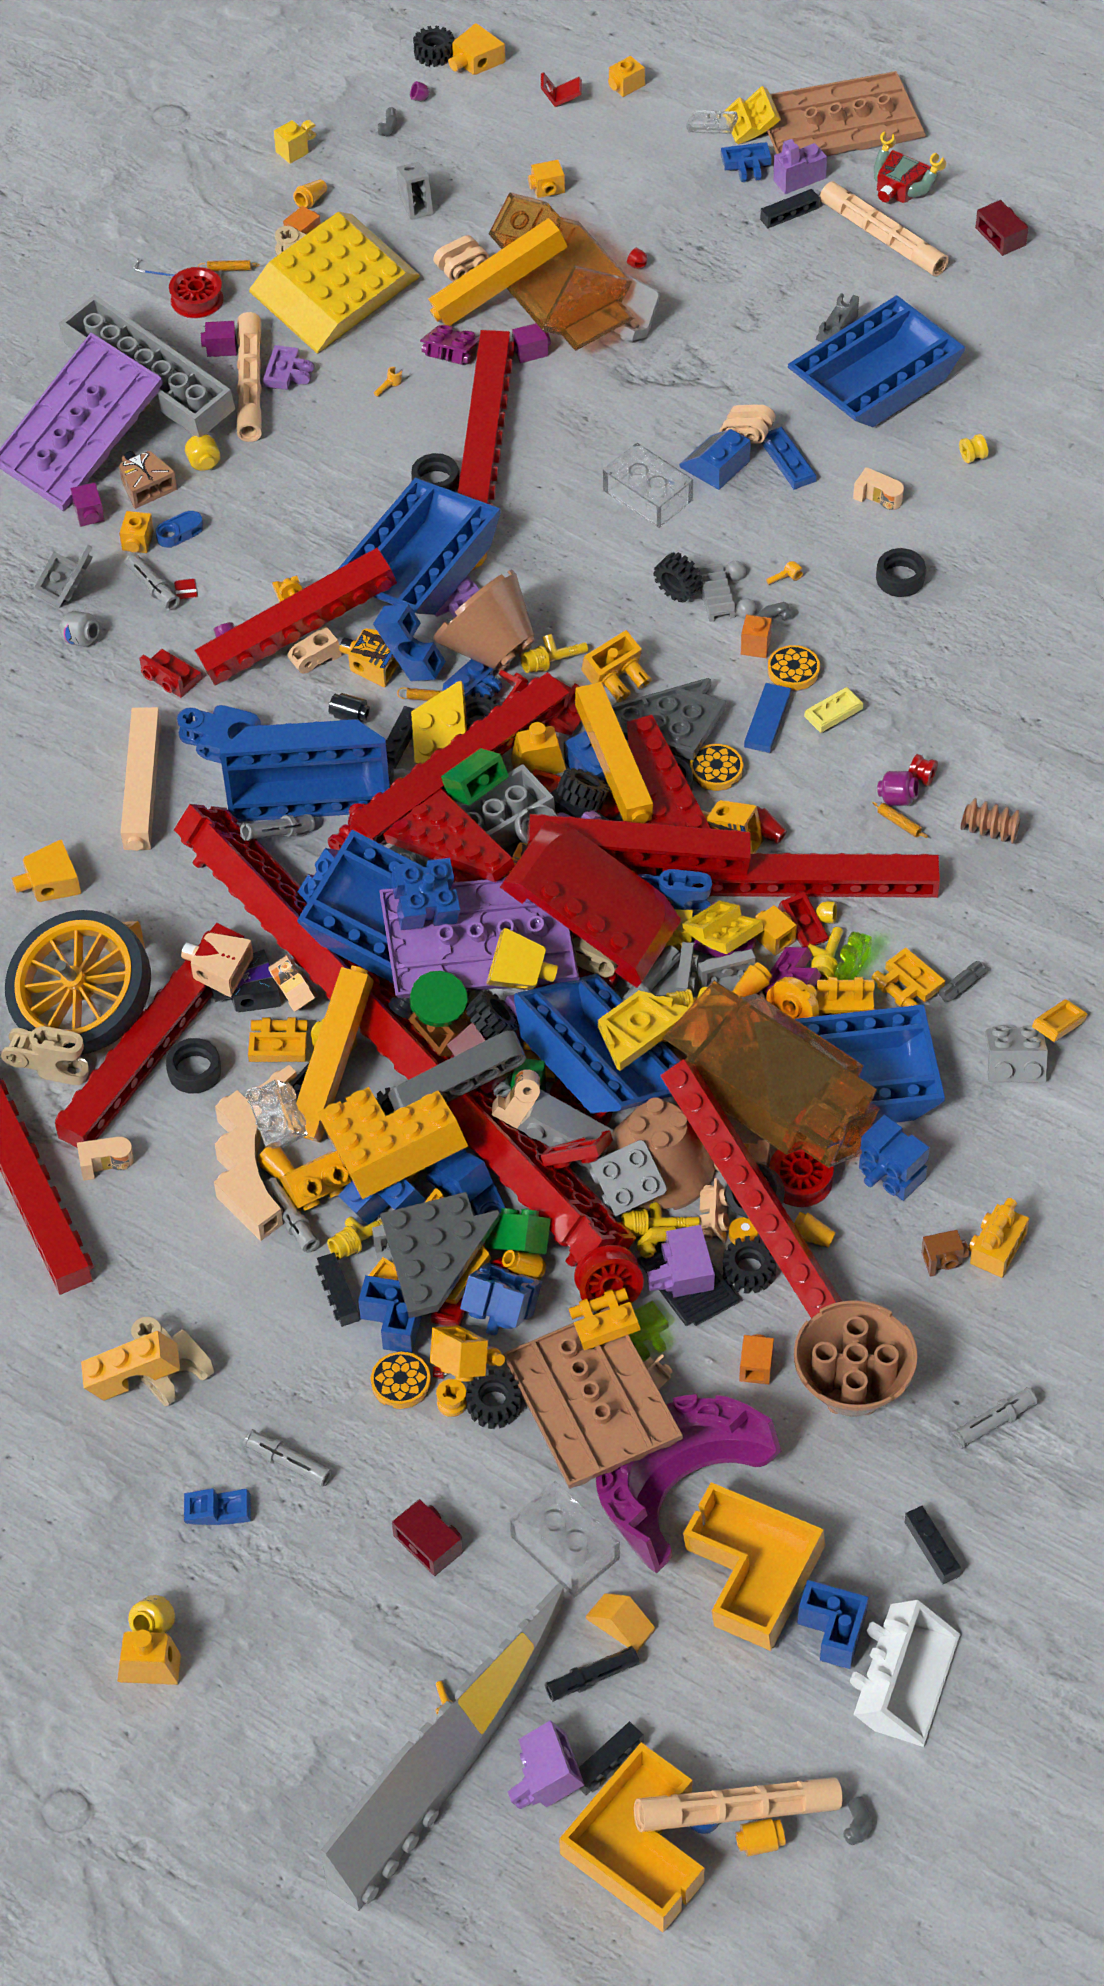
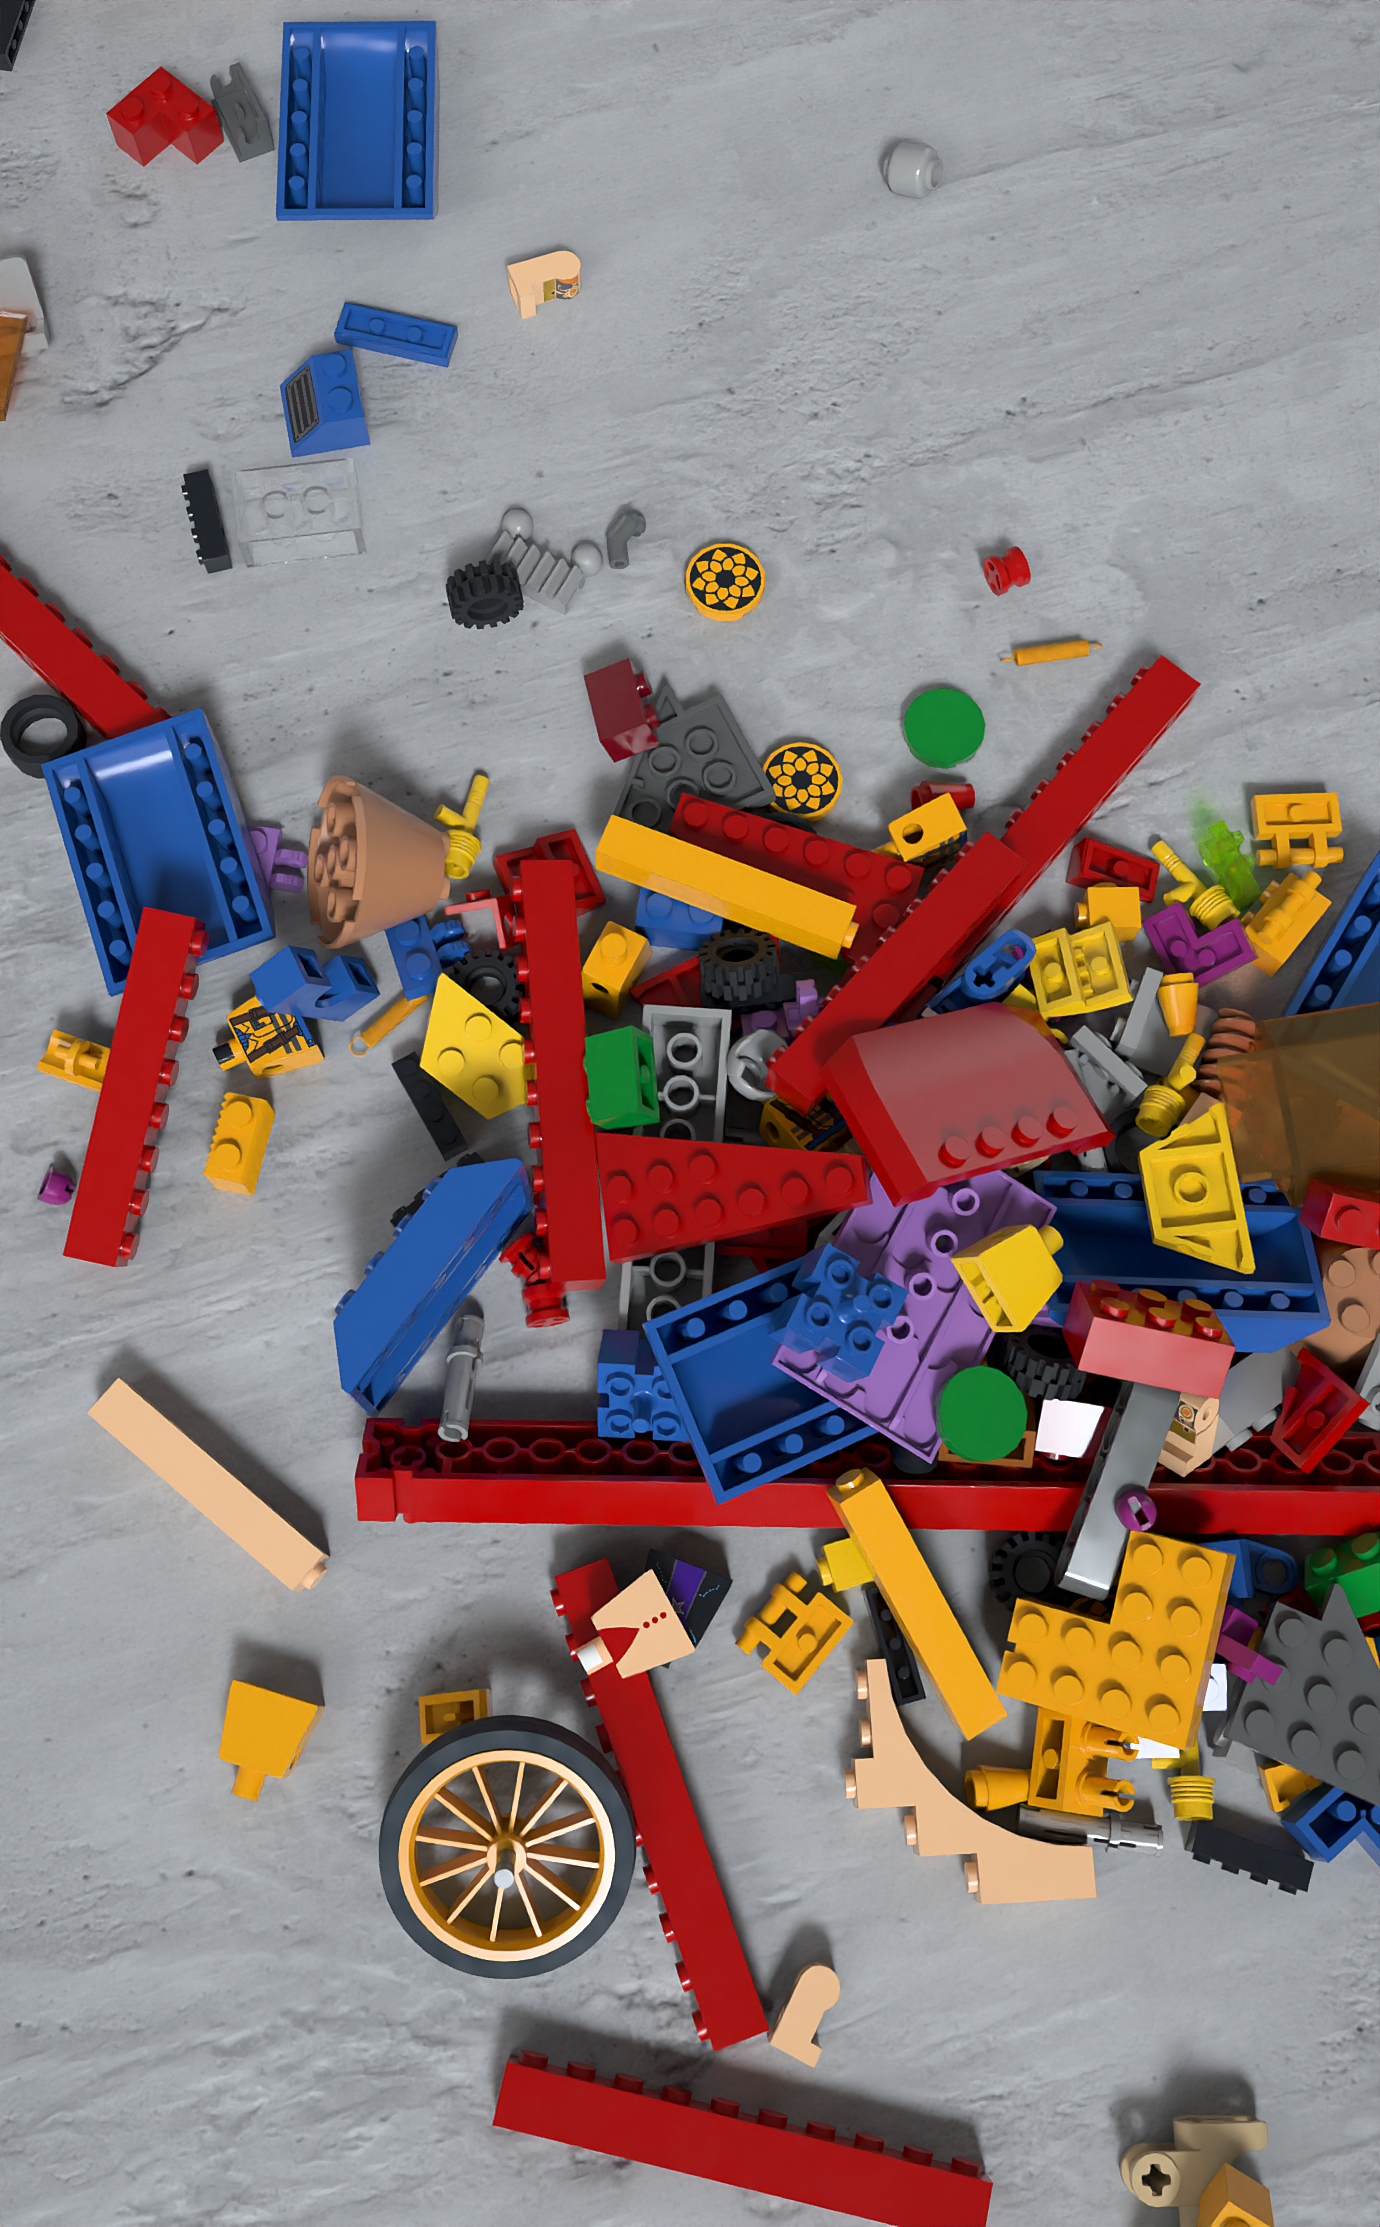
camera: 55 degrees left, 20 degrees up
(45, 1052) = (566, 1996): tan piece -> none
(170, 672) = (57, 1308): red bracket -> none
(193, 1083) = (785, 1788): black tyre -> none
(213, 729) = (215, 1329): blue piece -> none
(277, 1113) = (956, 1748): clear brick -> none
(292, 983) = (740, 1553): light nougat leg -> none
(309, 678) = (239, 1143): none -> light orange brick
(314, 650) = (195, 1102): light nougat leg -> none
(348, 707) = (331, 1132): black brick -> none
(428, 1185) = (1232, 1645): none -> magenta bracket
(451, 1084) = (1127, 1517): none -> magenta hinge
(533, 1024) = (1147, 1338): none -> brick
(613, 659) = (544, 771): light orange brick -> none
(617, 446) = (207, 521): none -> black piece
(674, 667) = (622, 709): none -> dark red brick
(750, 421) = (311, 329): light nougat brick -> none
(756, 636) = (650, 583): orange brick -> none
(767, 717) = (775, 669): blue tile -> none
(791, 569) = (577, 466): light orange hand -> none
(799, 291) = (163, 114): none -> red brick
(799, 993) = (1254, 981): light orange plate -> none
(808, 803) = (943, 728): none -> green tile
(827, 912) = (1126, 835): yellow hinge -> none
(833, 709) = (831, 591): light yellow plate -> none
(896, 586) = (691, 333): black tyre -> none
(898, 788) = (1013, 617): magenta head -> none
(962, 981) = (1342, 773): dark grey axle -> none
(973, 448) = (577, 140): yellow wheel -> none
(991, 820) = (1146, 560): nougat piece -> none

